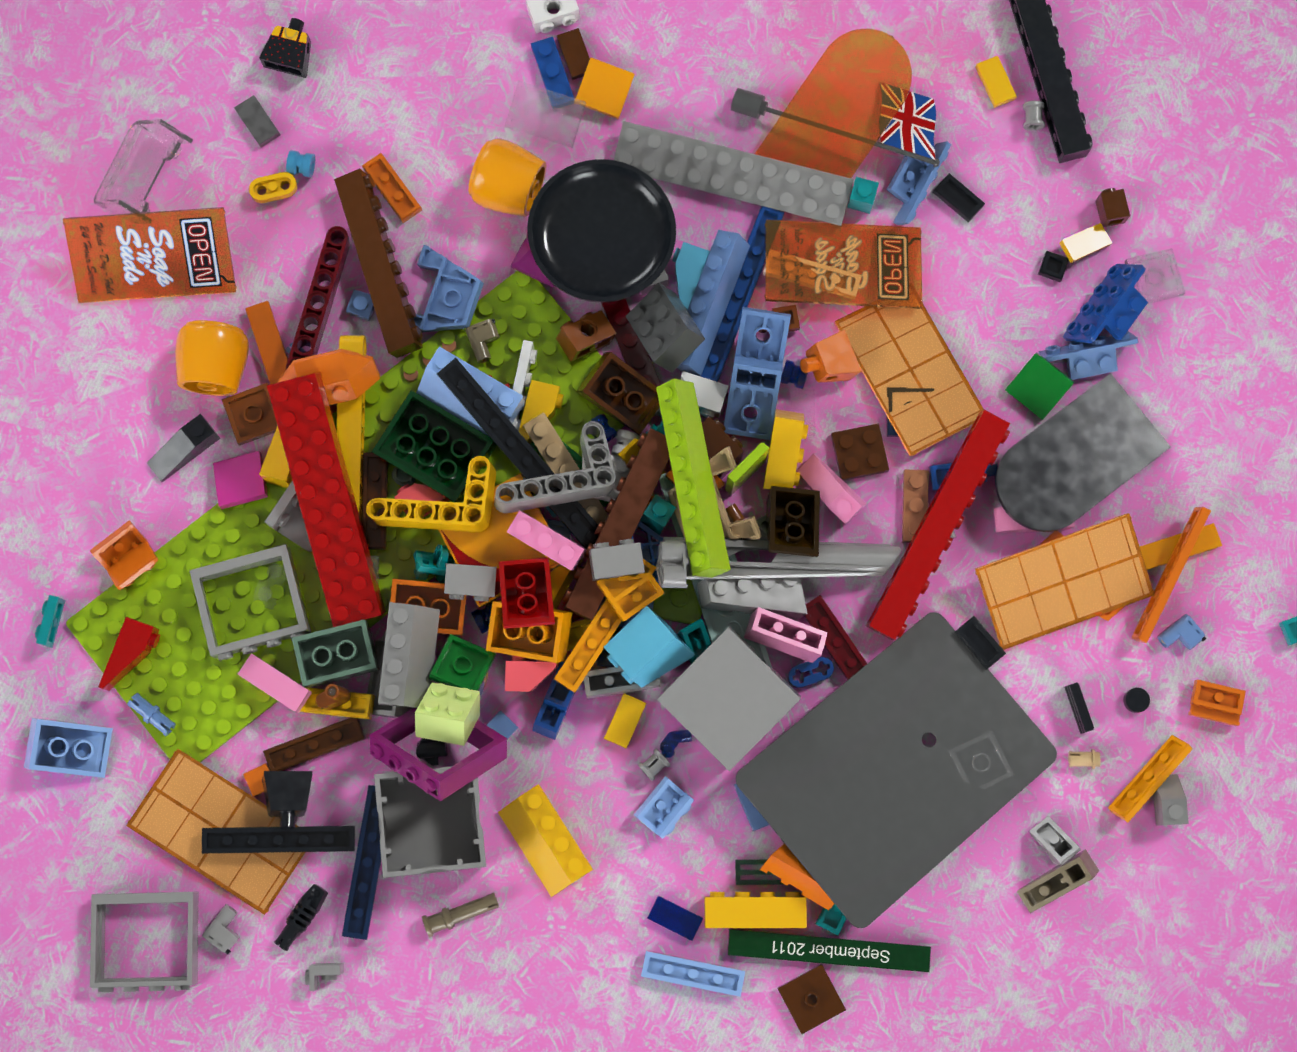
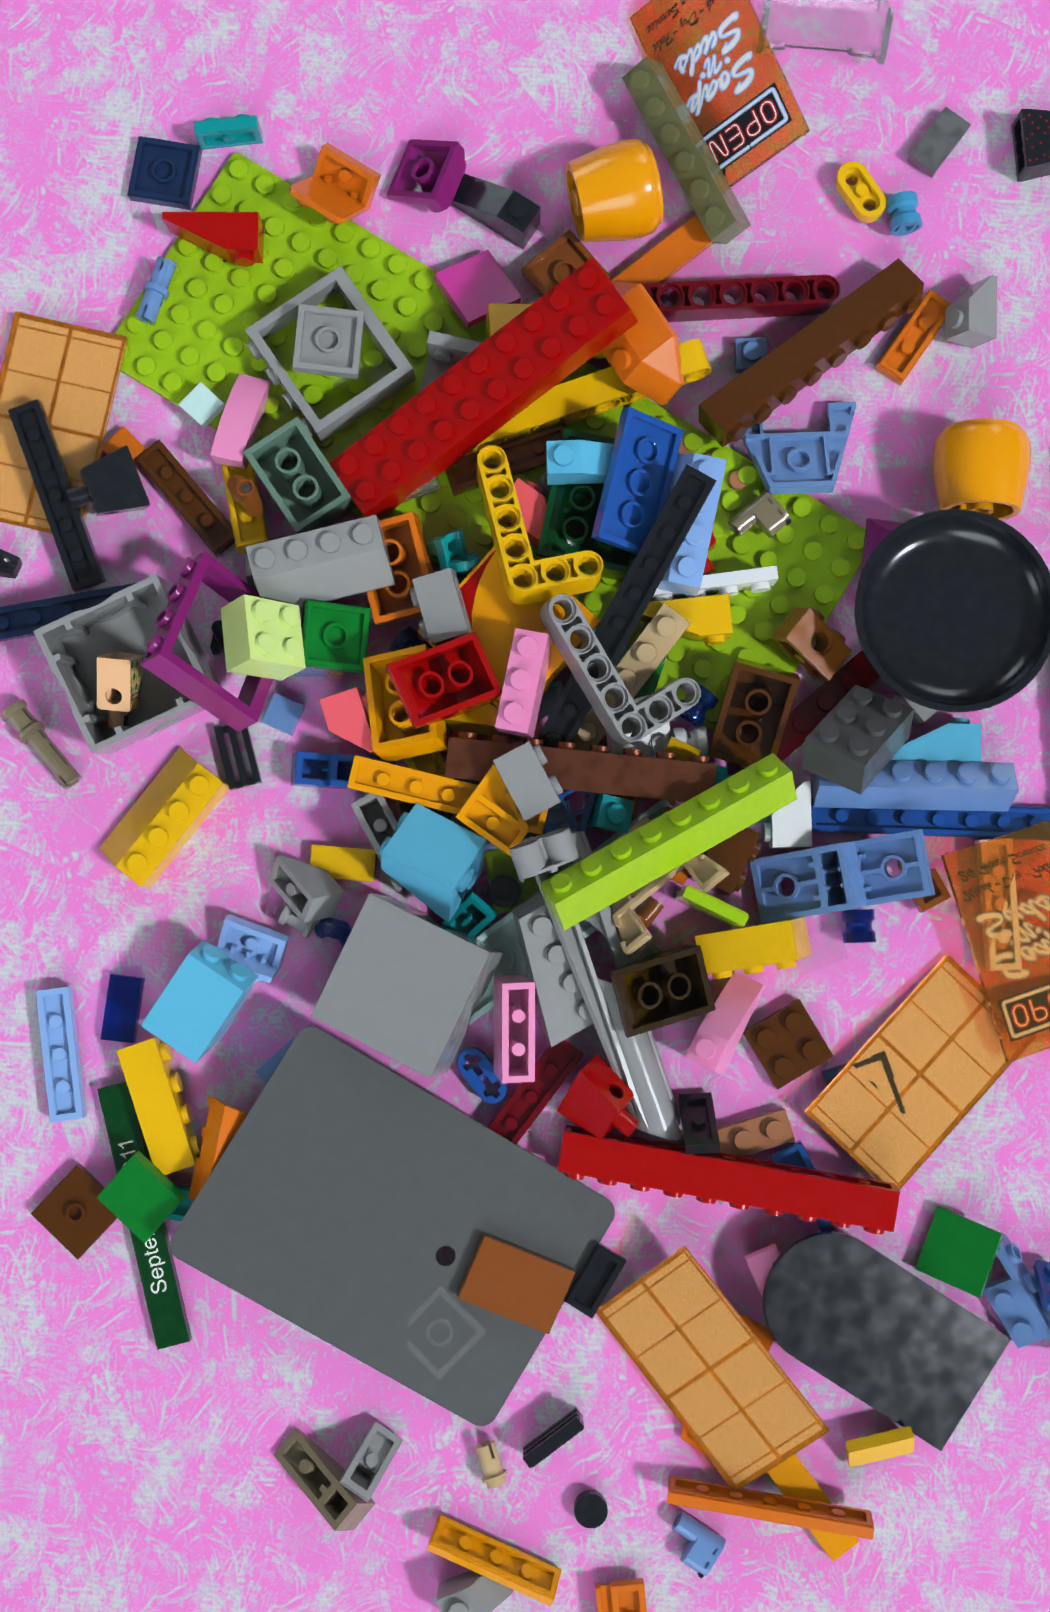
camera: 75 degrees right, 5 degrees up
(60, 680) = (164, 173): none -> dark blue tile
(68, 748) = (85, 209): light blue slope -> none
(140, 486) = (429, 173): none -> magenta slope
(197, 297) = (686, 151): none -> olive brick
(244, 597) = (328, 341): none -> light grey plate
(251, 709) = (202, 405): none -> light aqua tile
(391, 142) = (973, 314): none -> light grey slope
(406, 439) = (577, 461): none -> medium azure slope
(431, 413) = (636, 479): none -> blue plate
(431, 833) = (122, 673): none -> light nougat torso
(497, 769) = (244, 782): none -> black tile
(634, 752) = (305, 888): none -> light grey slope
(685, 611) = (504, 891): none -> black tile
(690, 852) = (200, 1001): none -> medium azure slope
(738, 872) = (197, 1089): clear green tile -> none
(816, 944) = (141, 1196): none -> green tile
(831, 359) = (895, 967): orange torso -> none
(856, 593) = (599, 1101): none -> red torso
(894, 531) = (698, 1123): none -> black plate
(964, 697) = (516, 1283): none -> dark orange tile
(1154, 486) = (879, 1446): none -> yellow tile

